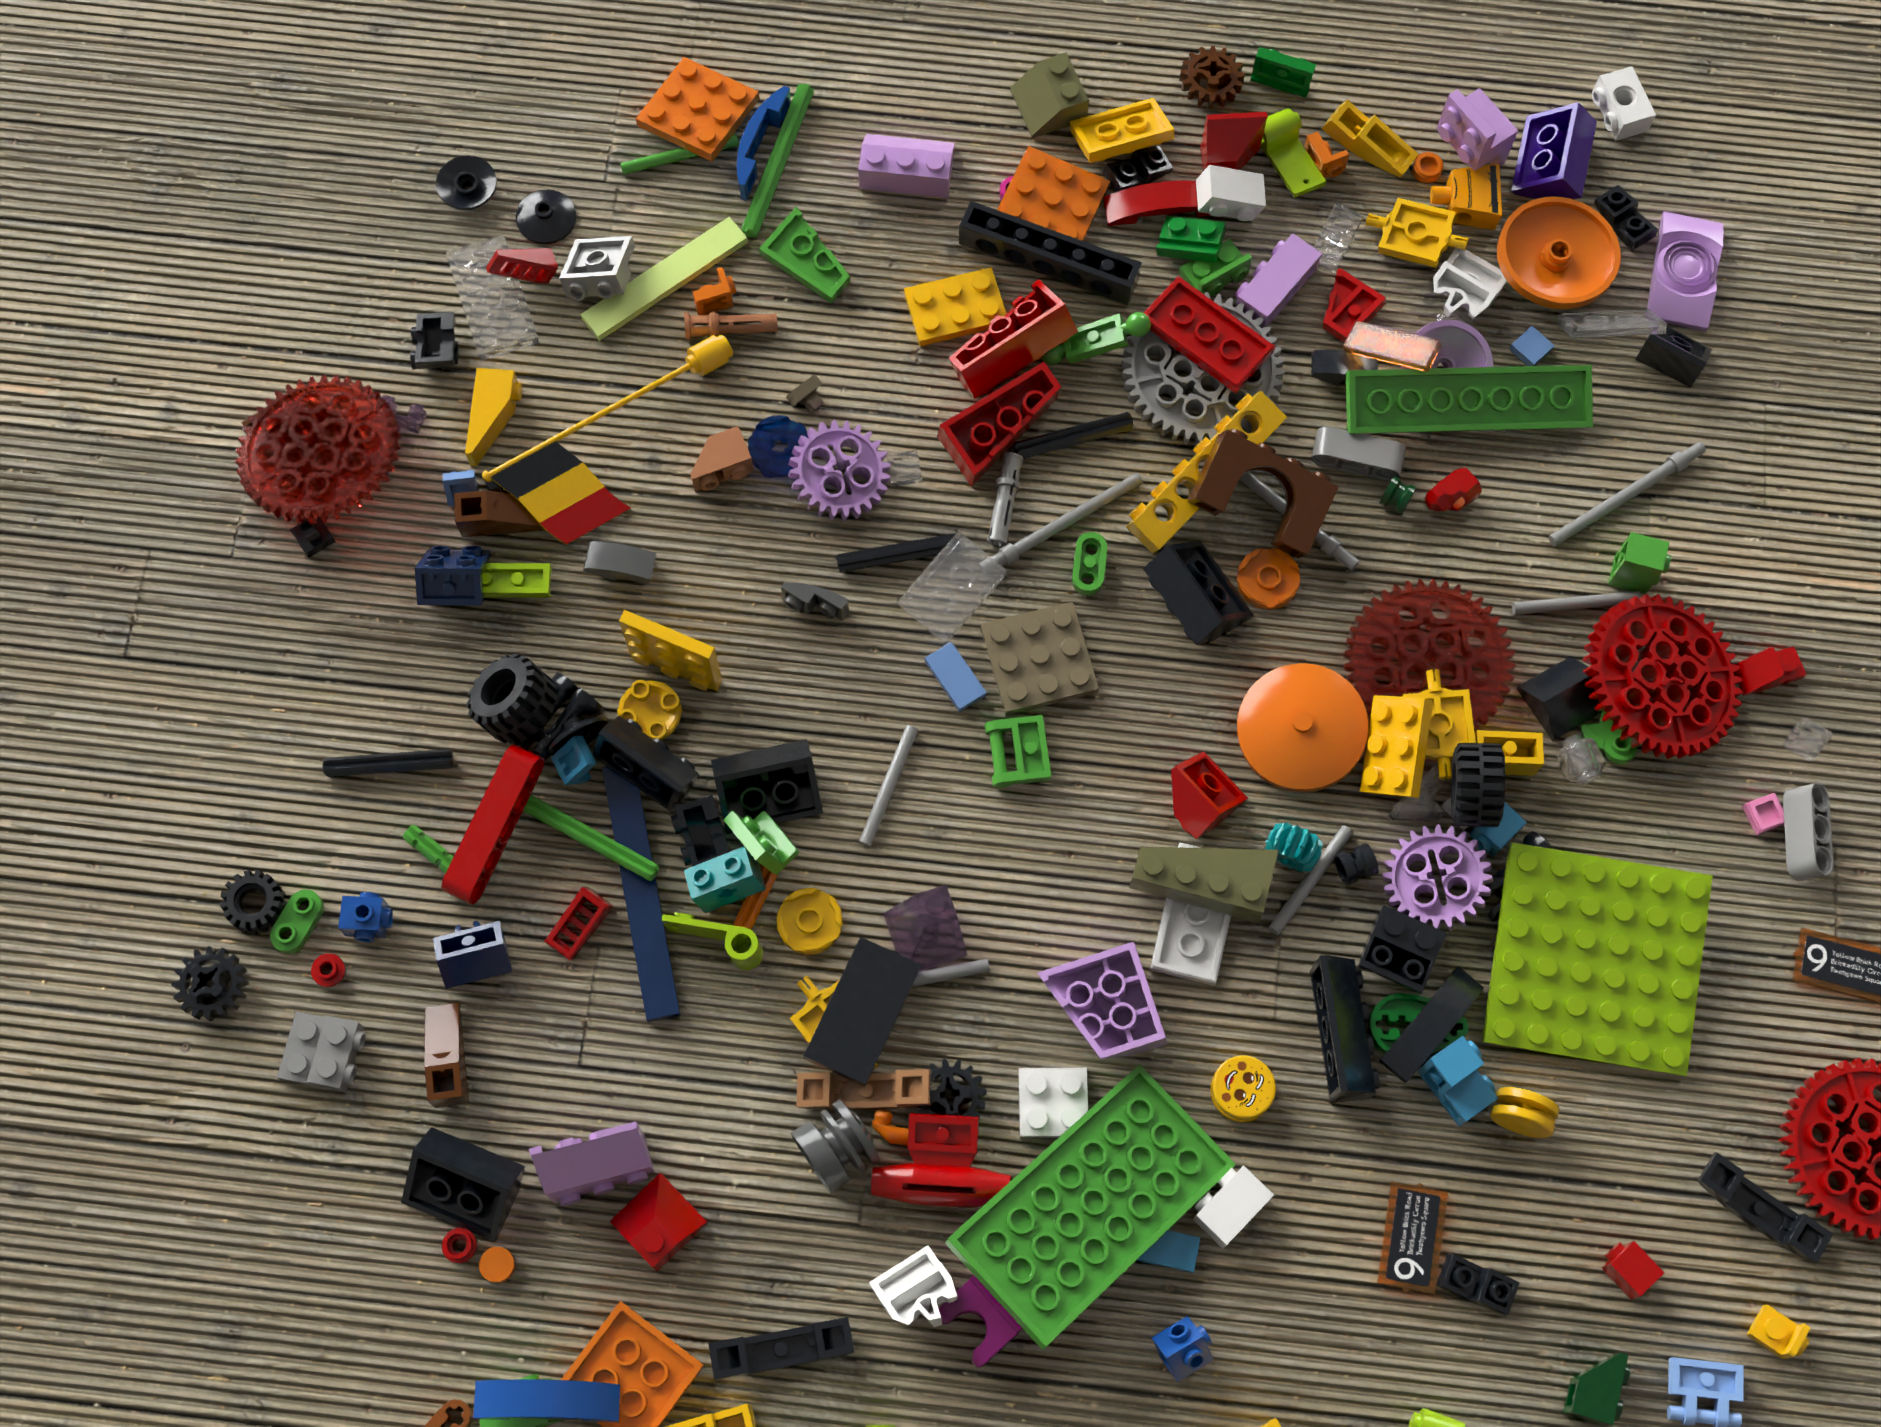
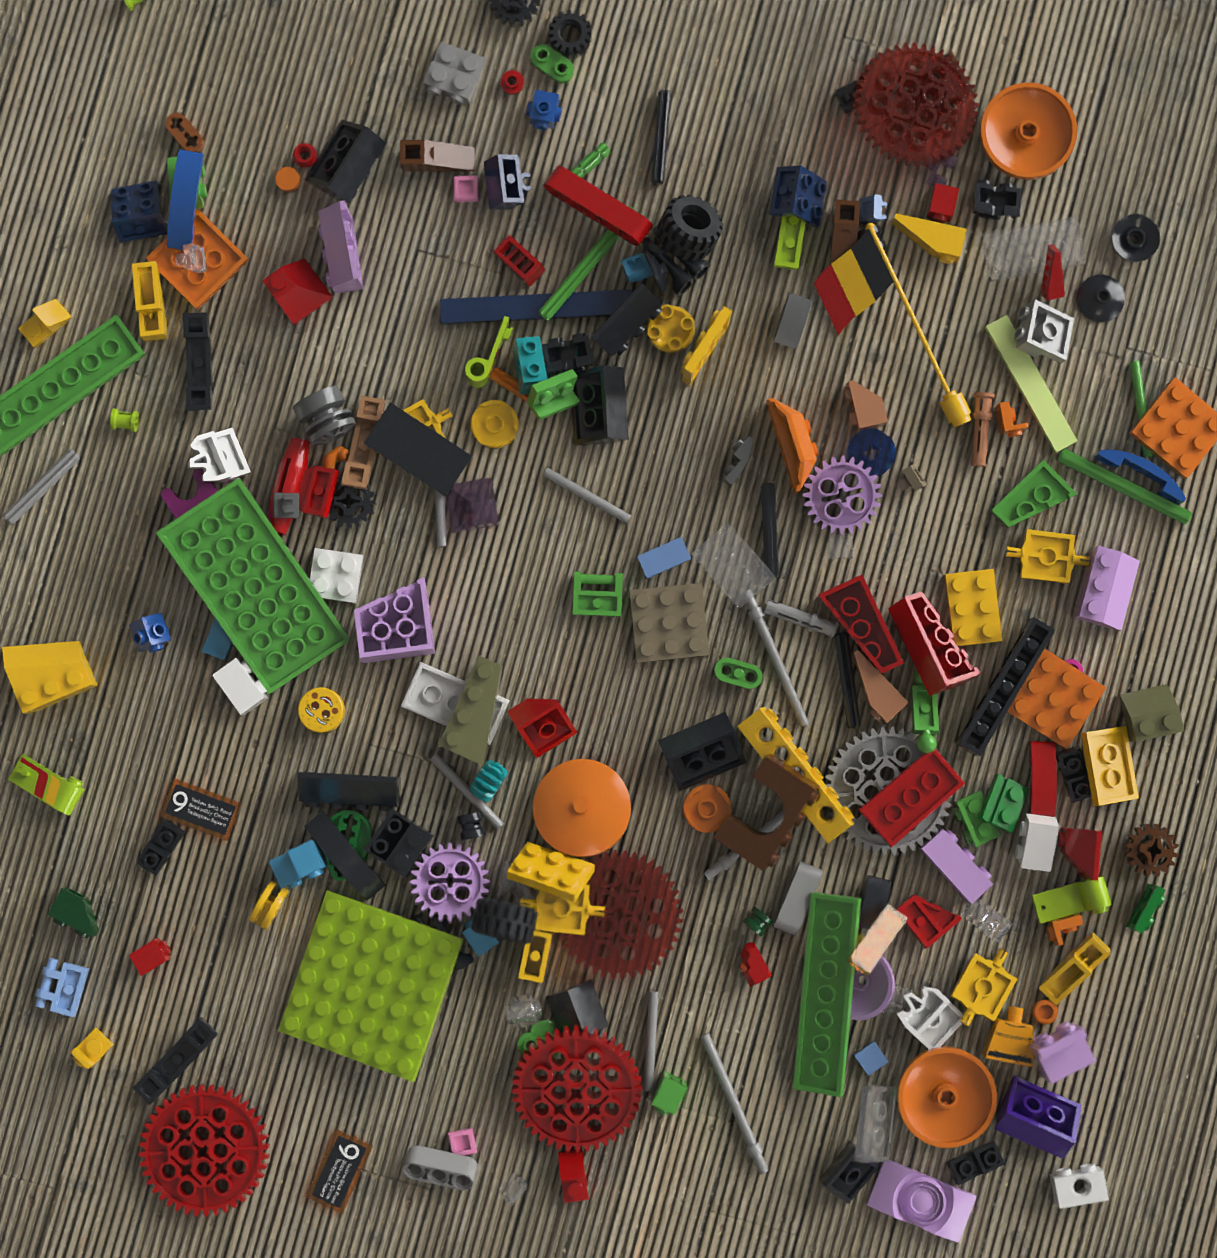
camera: 100 degrees right, 15 degrees up
(341, 316) = (1028, 131): none -> orange dish
(444, 405) = (942, 203): none -> red brick
(485, 1011) = (465, 188): none -> bright pink tile
(631, 1376) = (193, 258): none -> clear tile
(781, 537) = (794, 442): none -> orange wedge
(878, 231) = (1047, 556): none -> yellow plate
(971, 1176) = (285, 505): none -> dark grey tile
(1081, 397) = (878, 692): none -> nougat slope

